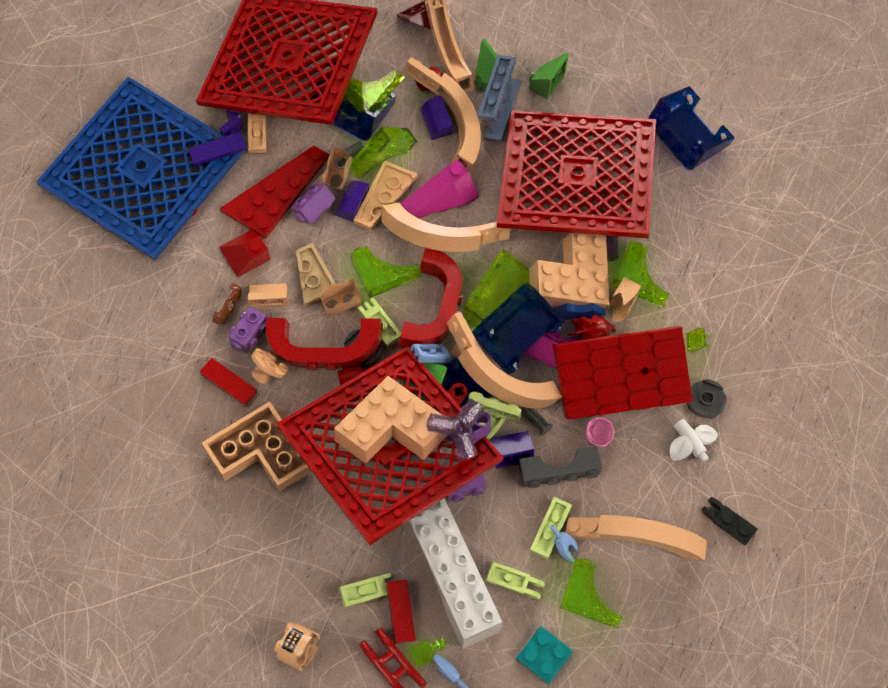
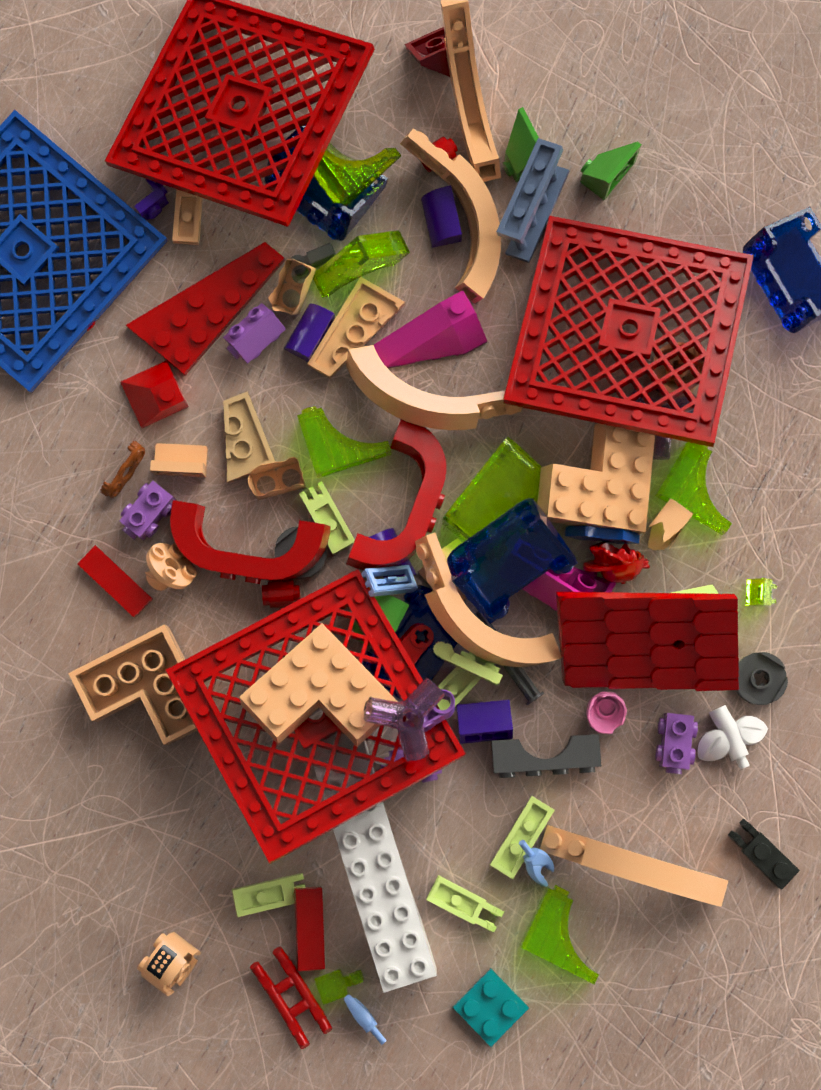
camera: 15 degrees right, 15 degrees up
(217, 149) = (129, 236): dark purple tile -> none
(653, 448) = (676, 742): none -> medium lavender brick

